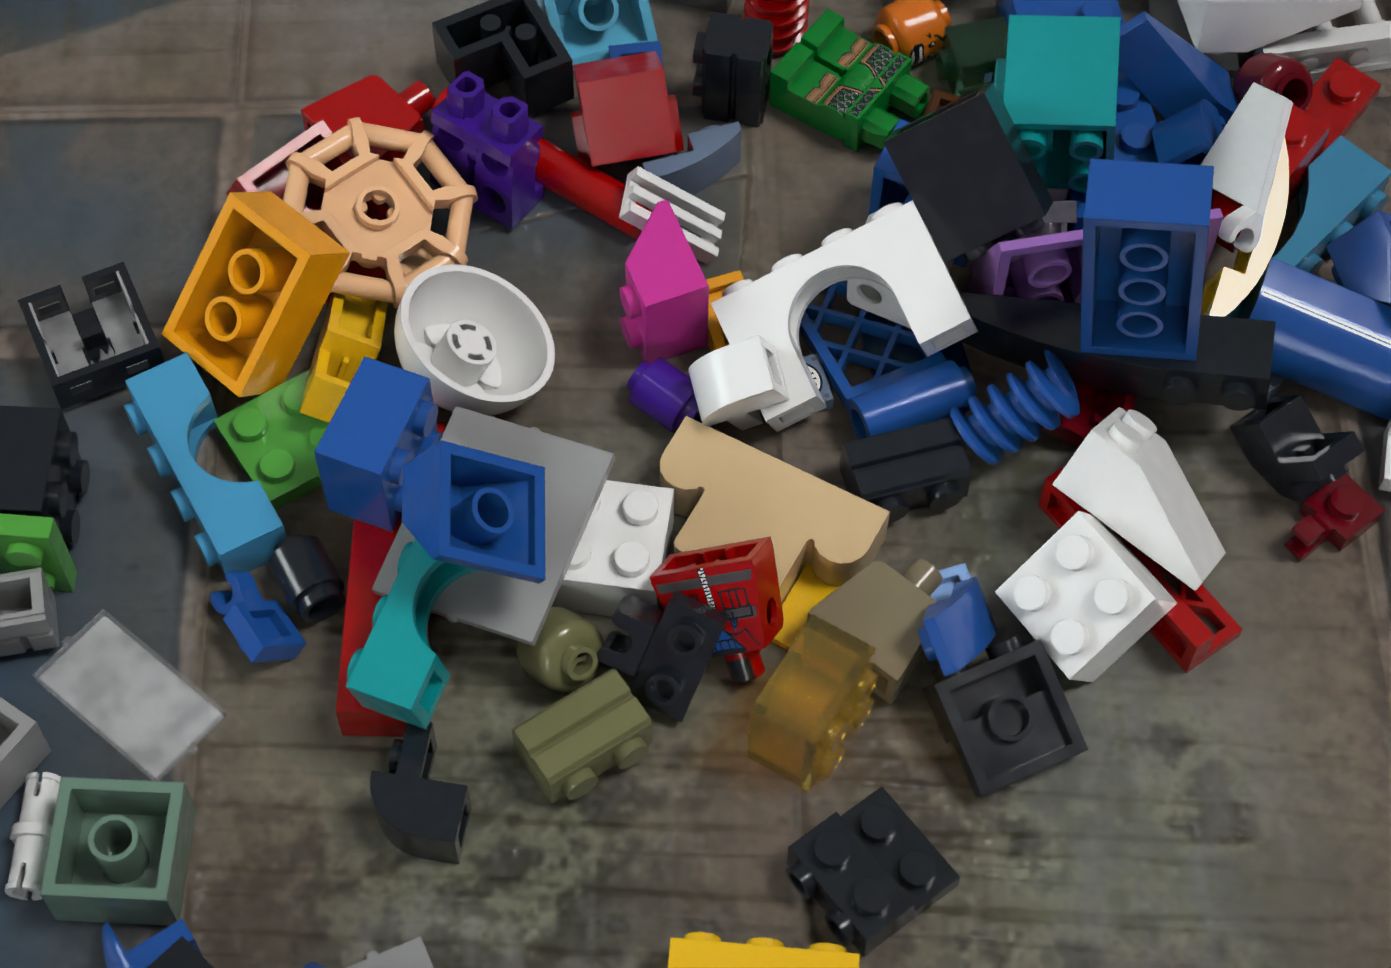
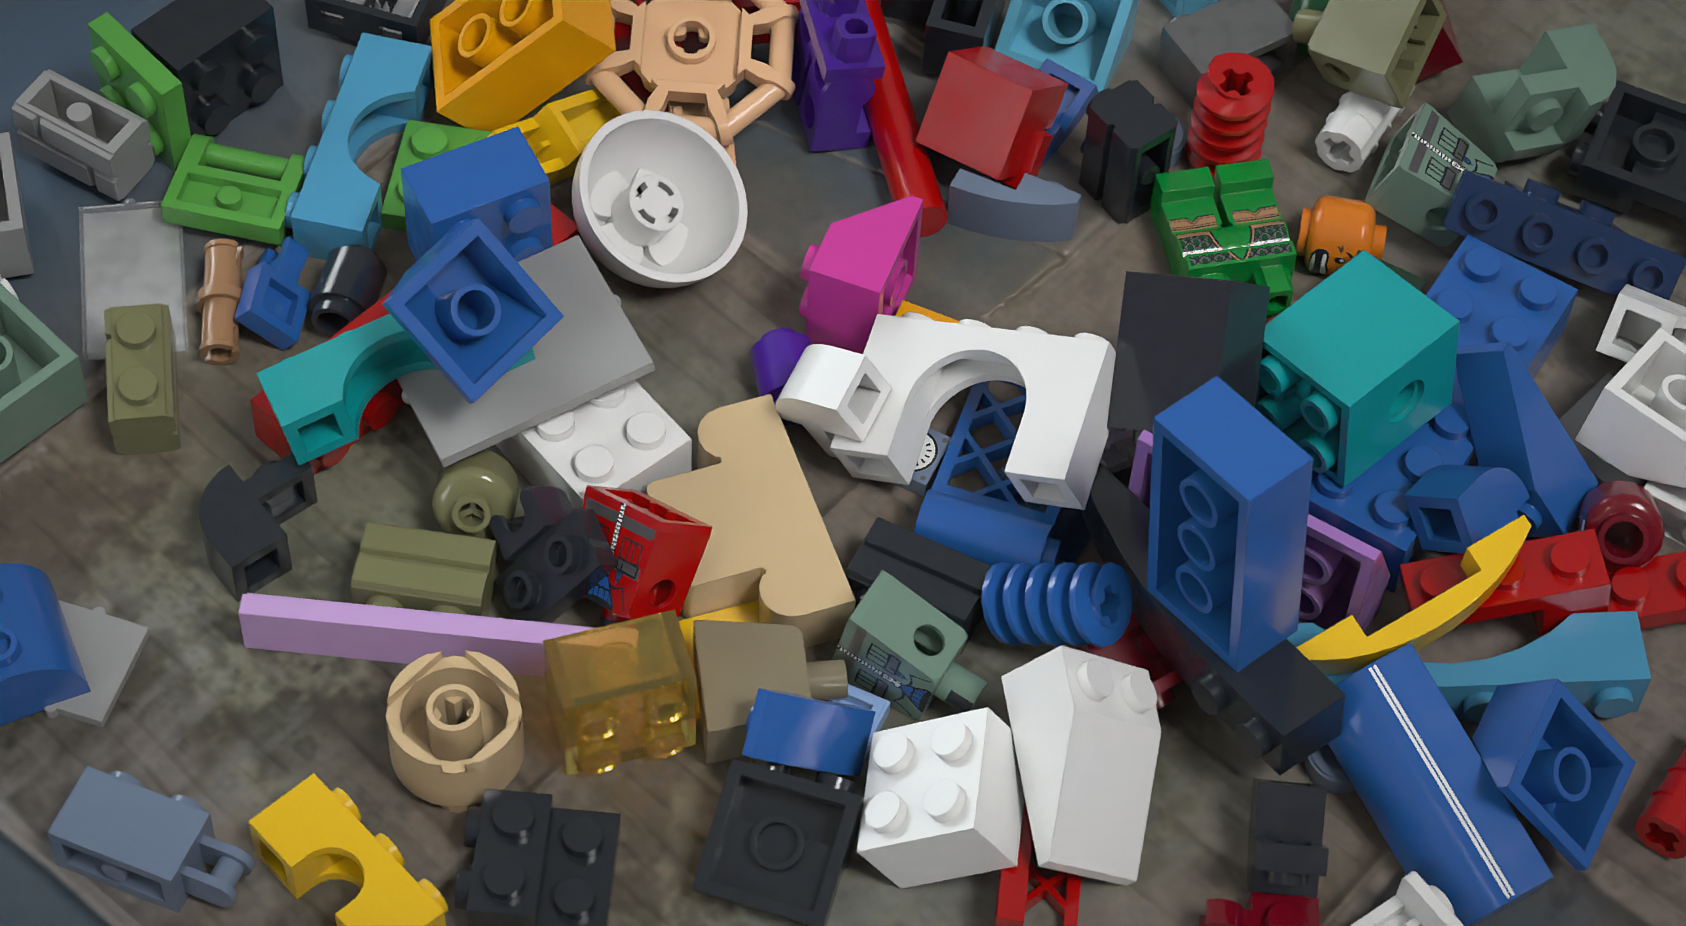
camera: 40 degrees right, 5 degrees down
(148, 579) = (232, 190): none -> bright green plate
(220, 658) = (219, 301): none -> medium nougat pin
(232, 760) = (142, 379): none -> olive brick
(627, 777) = (392, 632): none -> lavender tile
(689, 210) = (965, 225): white tile -> none
(718, 855) = (455, 728): none -> tan brick
(951, 520) = (906, 651): none -> sand green torso
(1247, 161) = (1453, 541): white flag -> none

